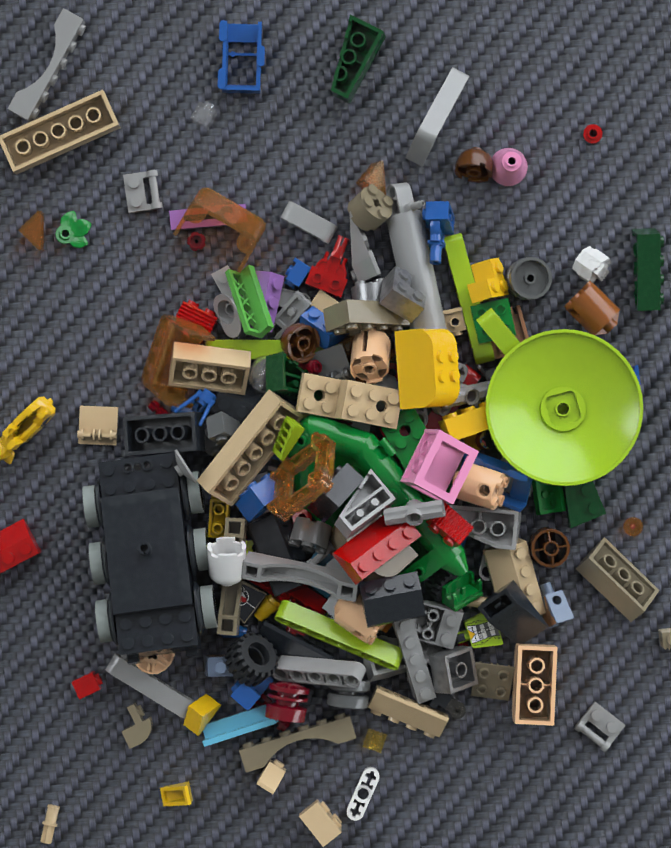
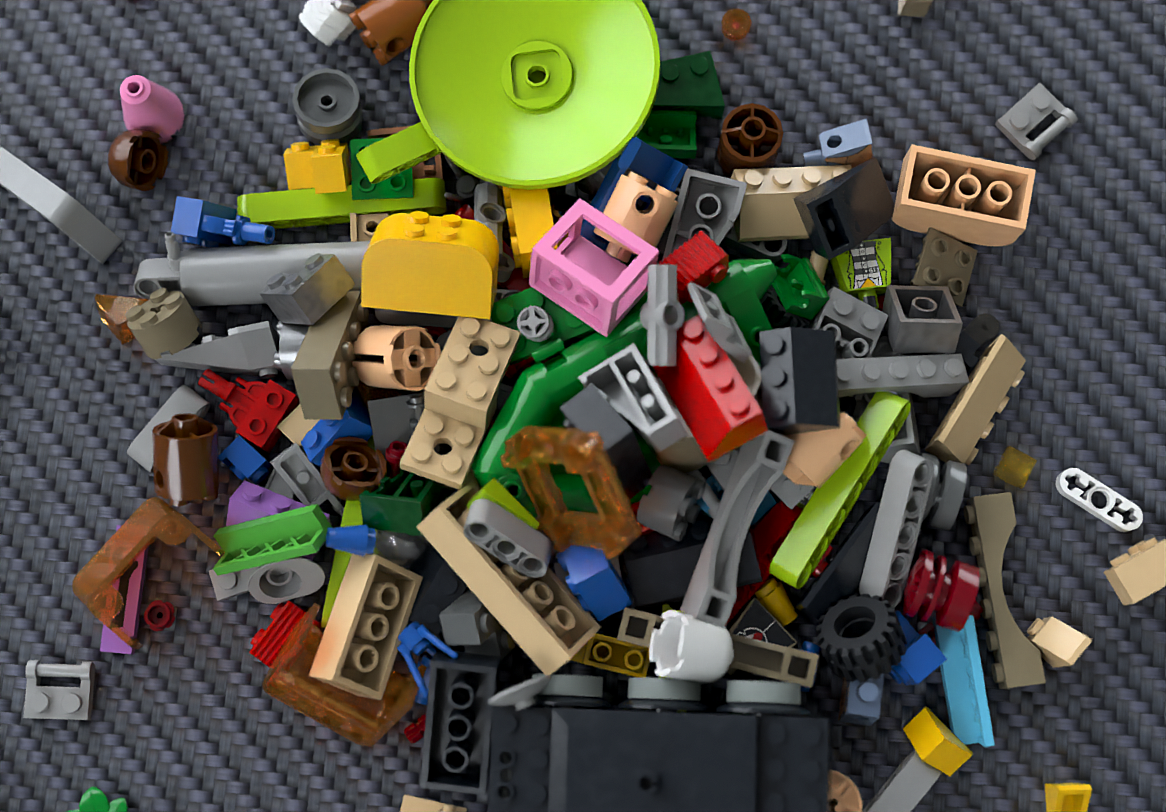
camera: 80 degrees left, 10 degrees down
(257, 354) = (352, 539): none -> blue cone
(271, 444) = (508, 538): none -> light grey beam
(289, 240) = (185, 459): none -> reddish brown cylinder
(401, 433) = (529, 321): none -> light grey wheel
(416, 546) = (718, 323): none -> light grey slope
(617, 580) = (815, 57): dark tan slope -> none

